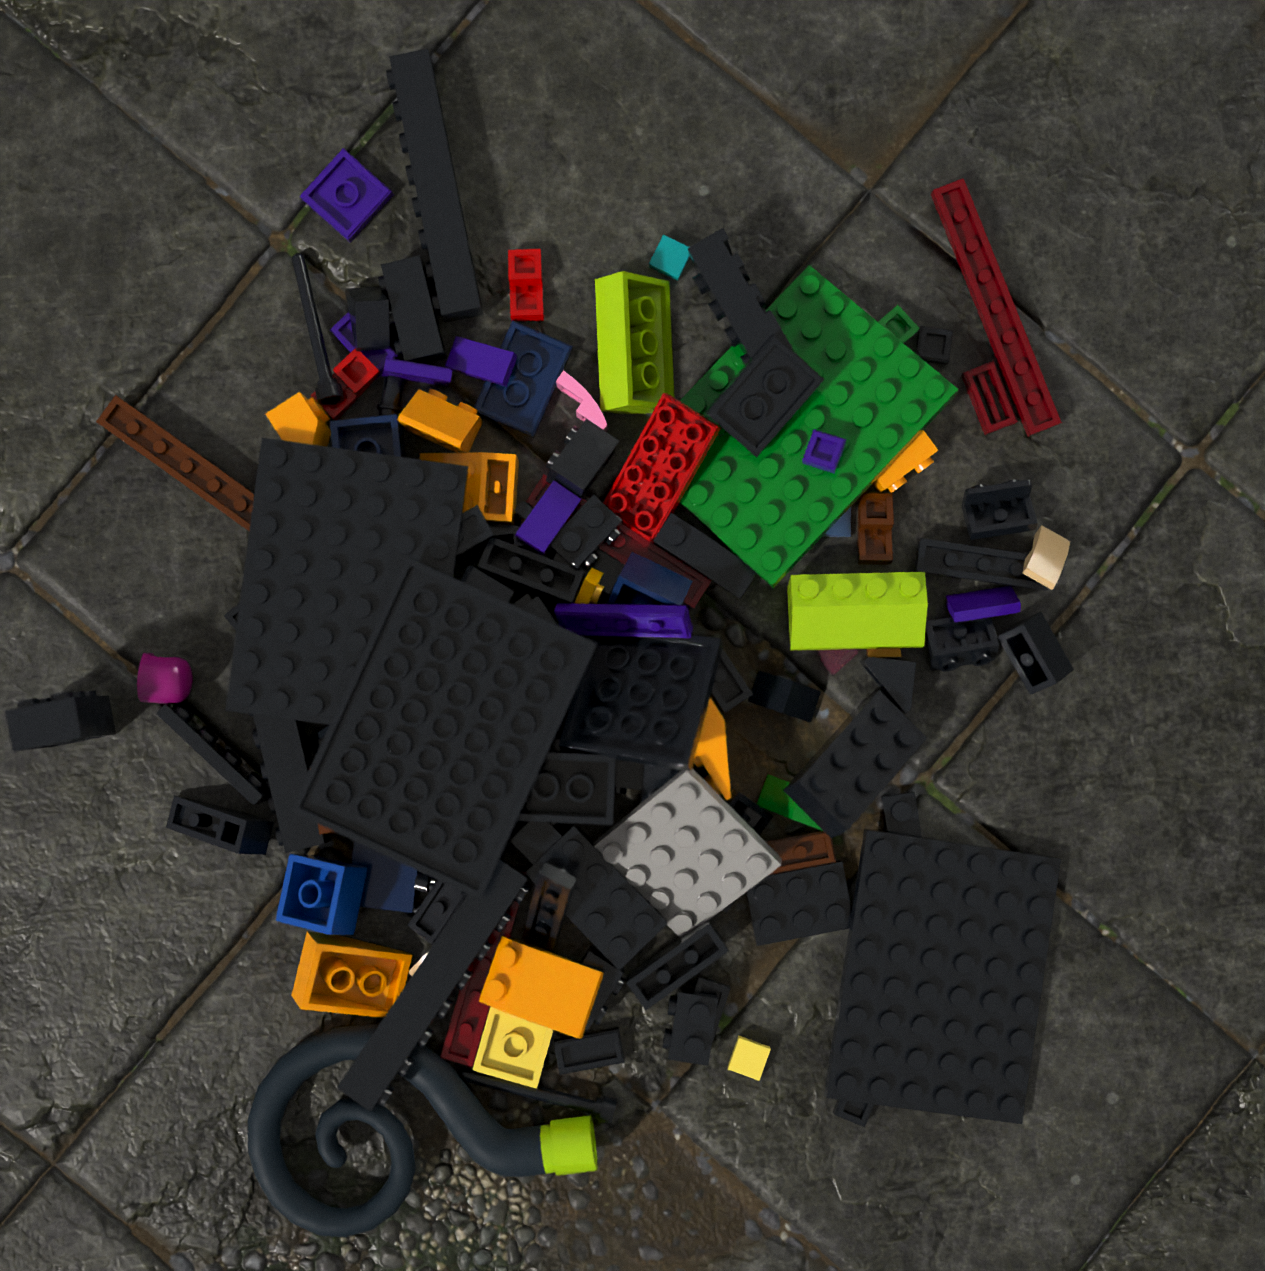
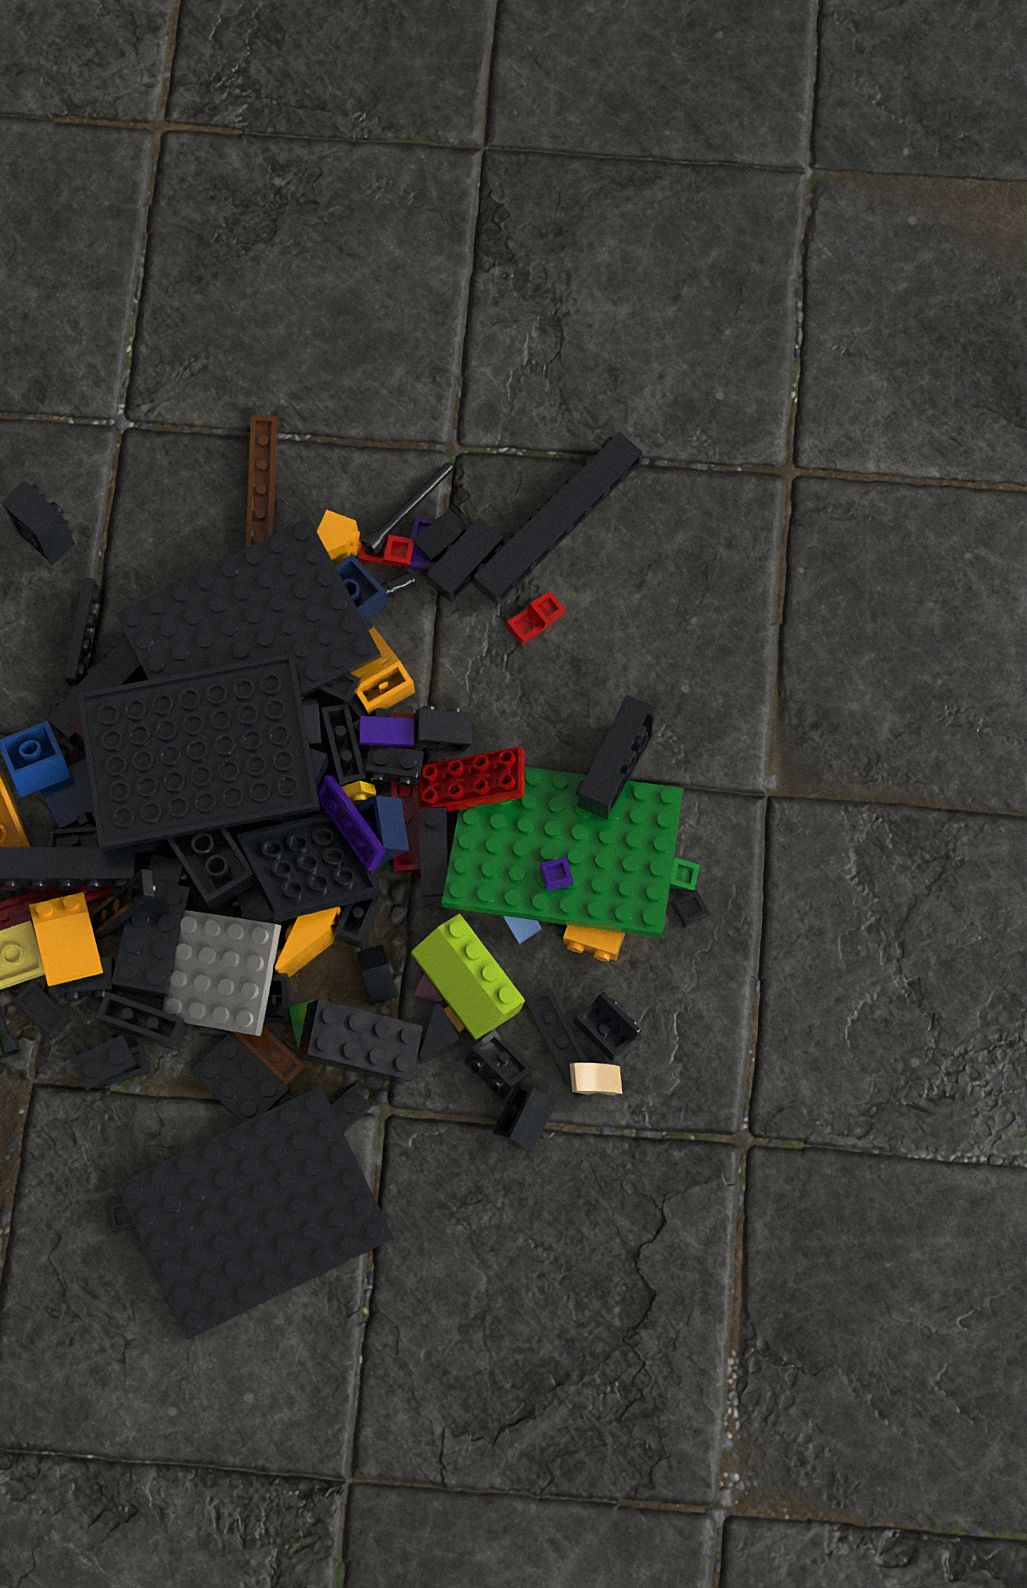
camera: 60 degrees right, 15 degrees down
(163, 679) = (109, 568): magenta helmet -> none
(220, 826) = (36, 668): black slope -> none
(346, 195) = (512, 468): dark purple tile -> none
(417, 372) = (425, 587): dark purple tile -> none
(441, 421) = (403, 624): light orange slope -> none
(481, 361) = (463, 623): dark purple tile -> none
(531, 381) = (471, 659): dark blue tile -> none
(588, 407) = (481, 710): bright pink slope -> none
(633, 342) = (547, 711): lime slope -> none
(670, 257) = (618, 692): teal tile -> none
(749, 1058) = (108, 1120): light yellow tile -> none
(764, 395) = (564, 809): black tile -> none
(875, 528) = (535, 955): reddish brown slope -> none
(978, 404) = (669, 989): dark red tile -> none
(983, 604) = (534, 1060): dark purple tile -> none
(995, 307) = (745, 931): dark red plate -> none

